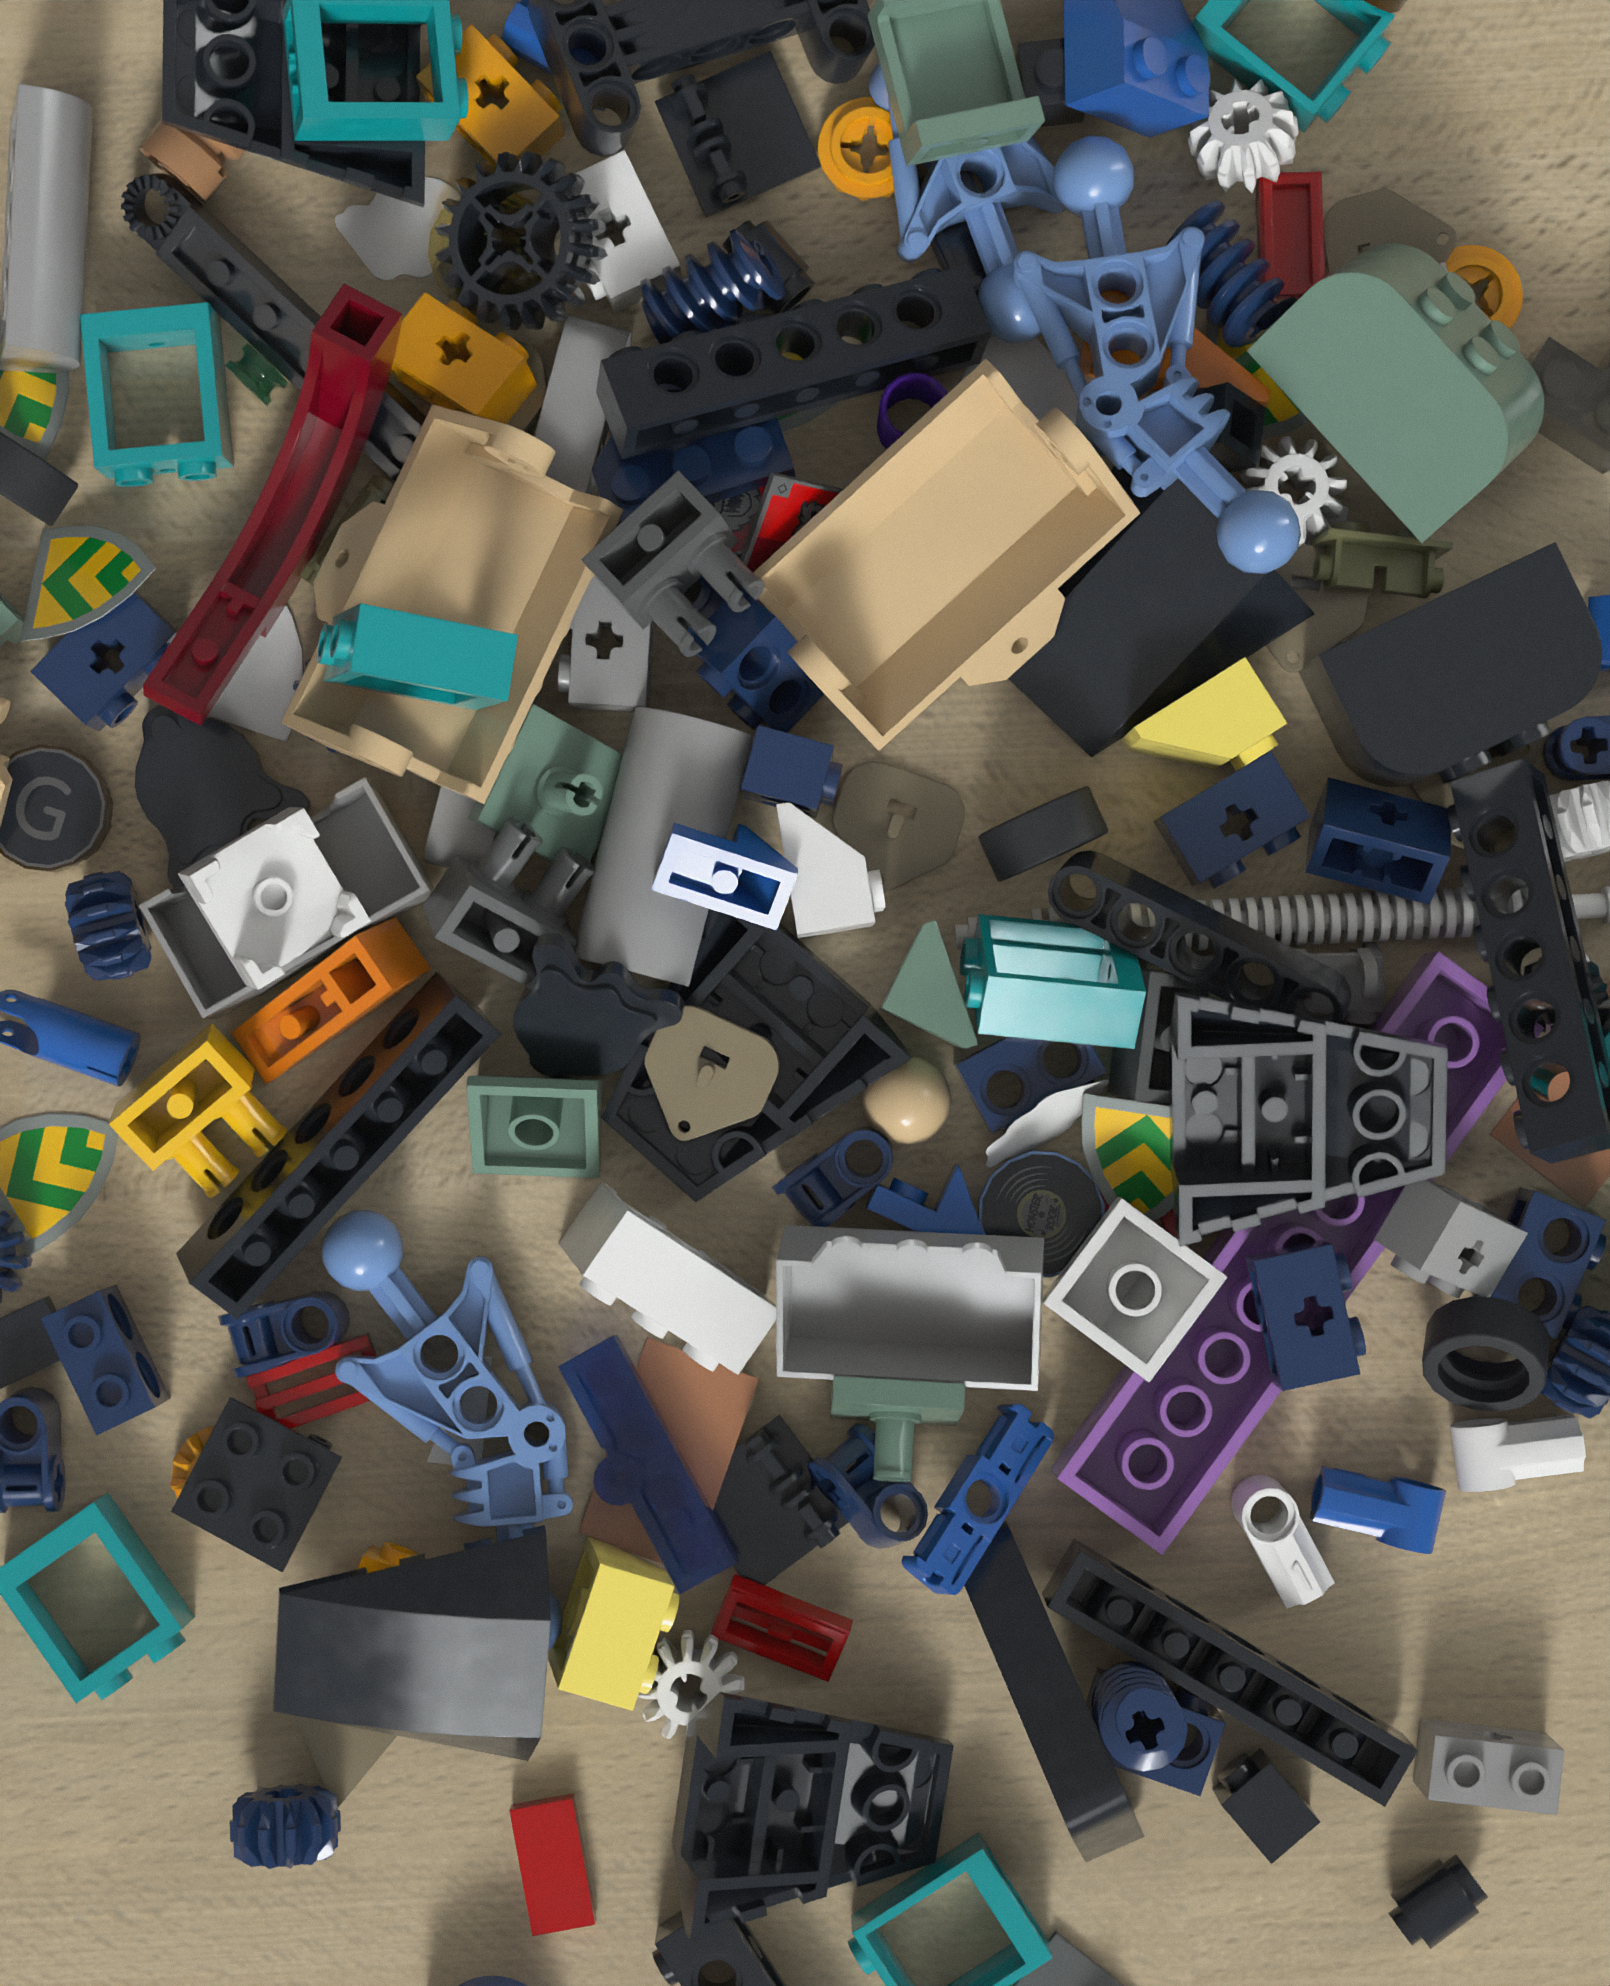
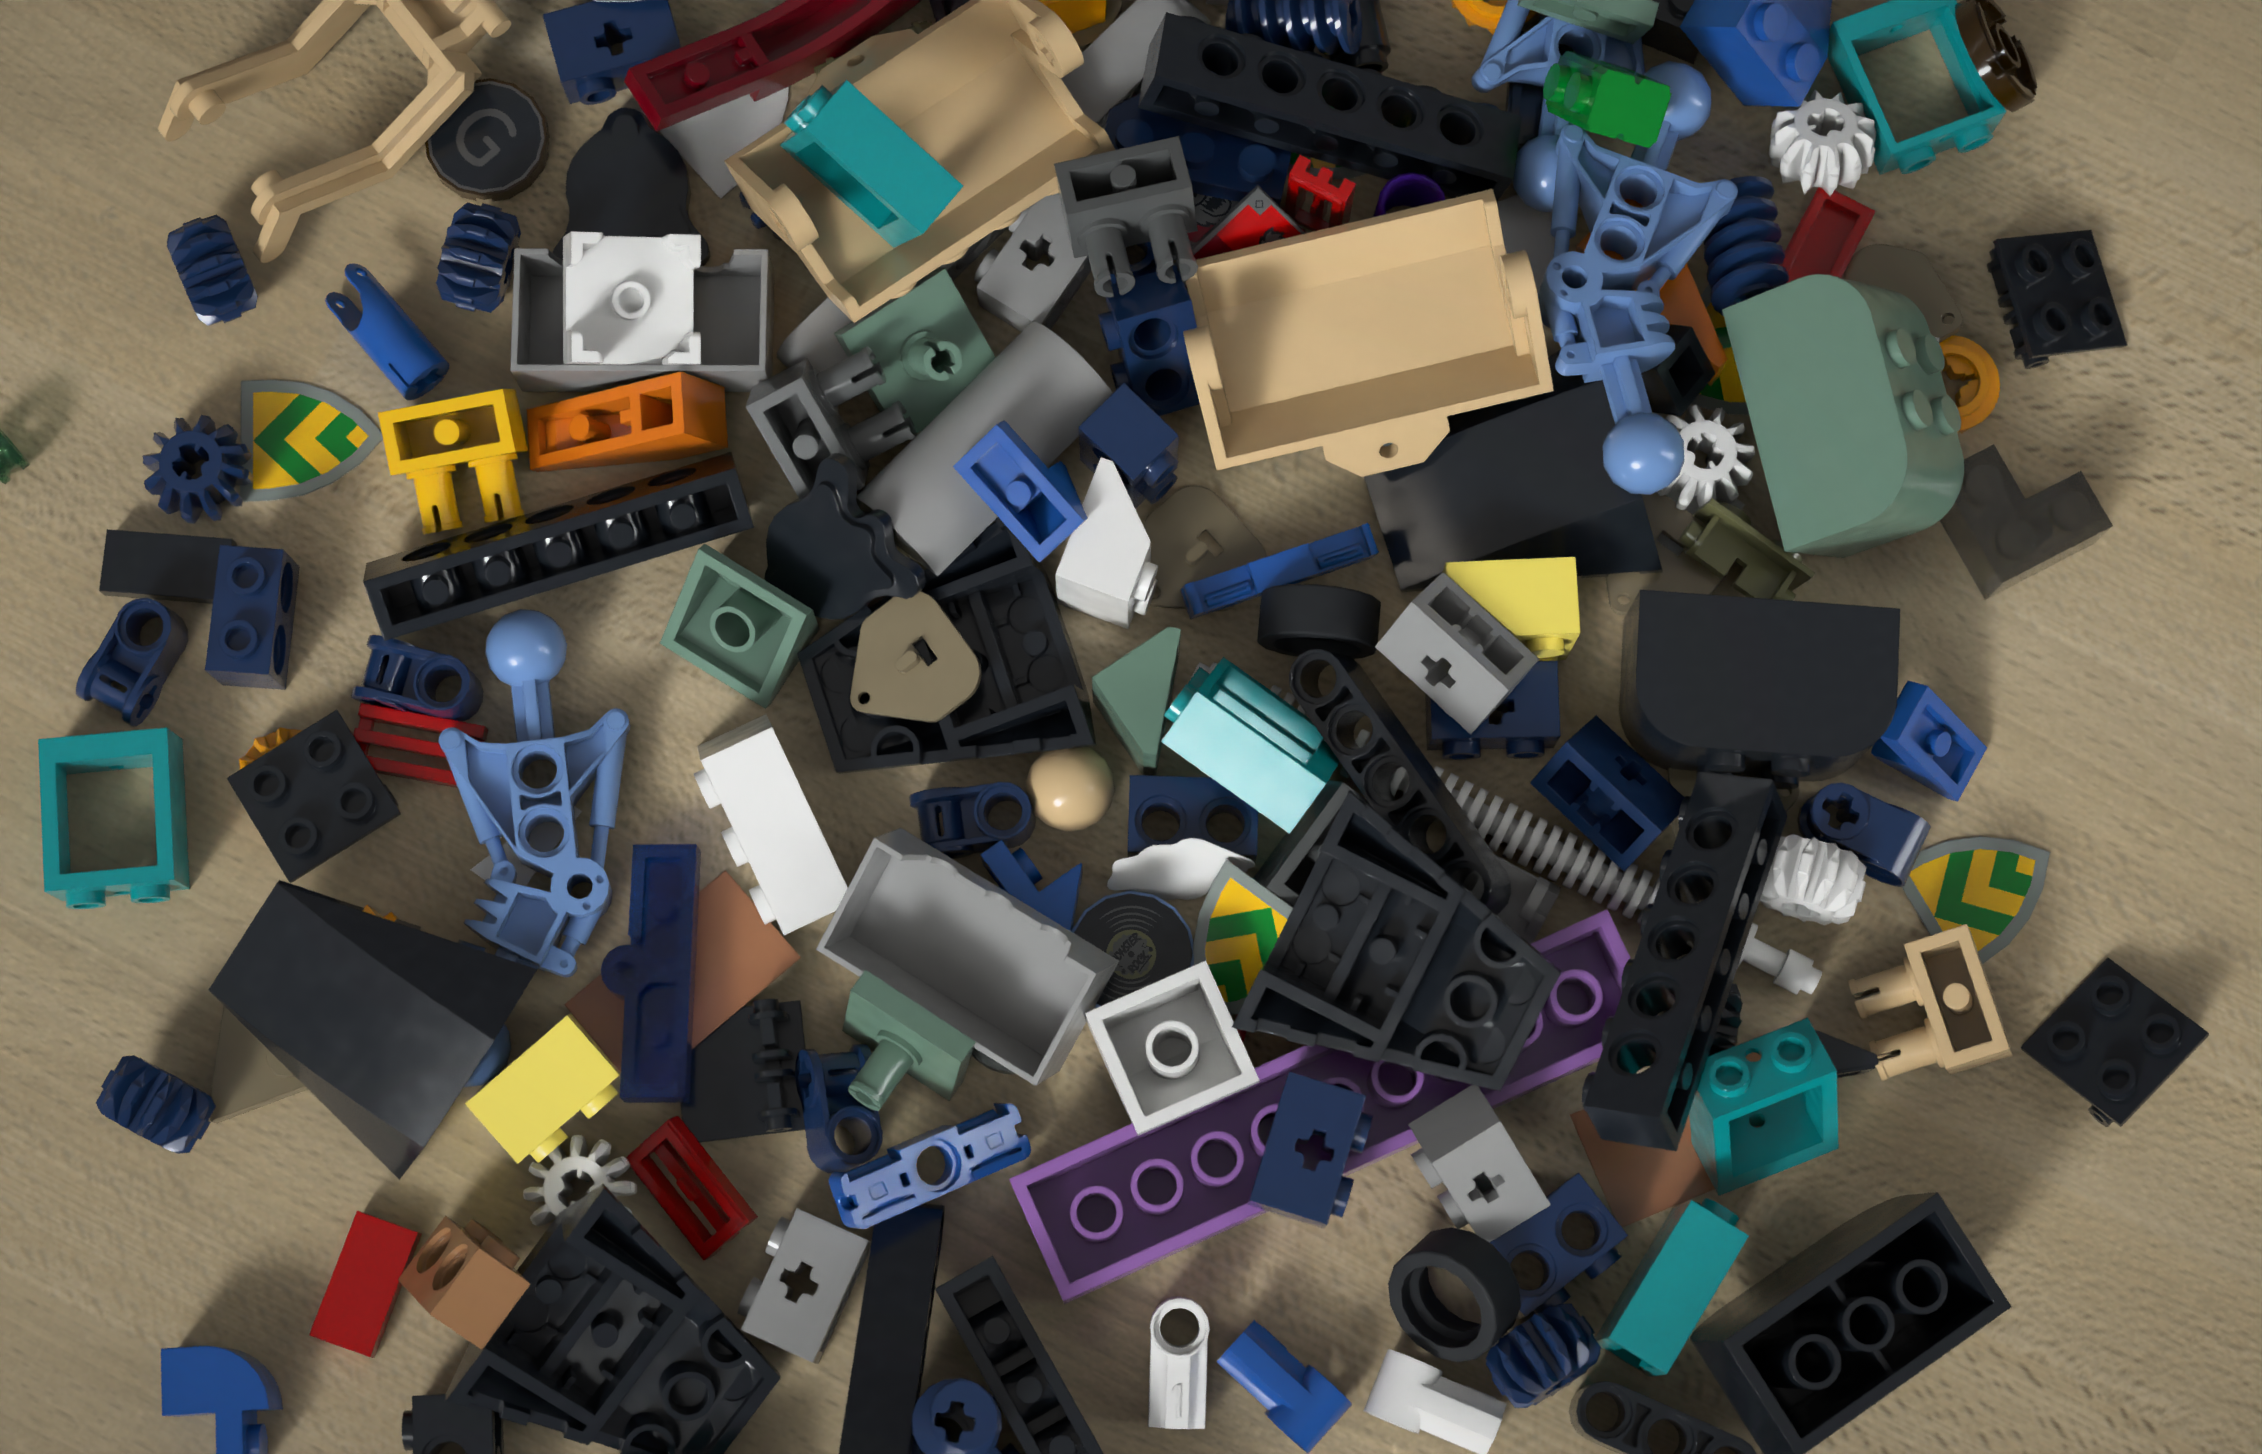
camera: 30 degrees right, 10 degrees down
(642, 1825) = (465, 1279): none -> medium nougat brick
(826, 445) = (1324, 192): none -> red tile
(936, 1694) = (836, 1263): none -> light grey brick
(979, 804) = (1279, 569): none -> blue piece
(1041, 213) = (1606, 98): none -> green brick
(1188, 801) = (1456, 652): none -> light grey brick
(1523, 160) = (2055, 295): none -> black hinge

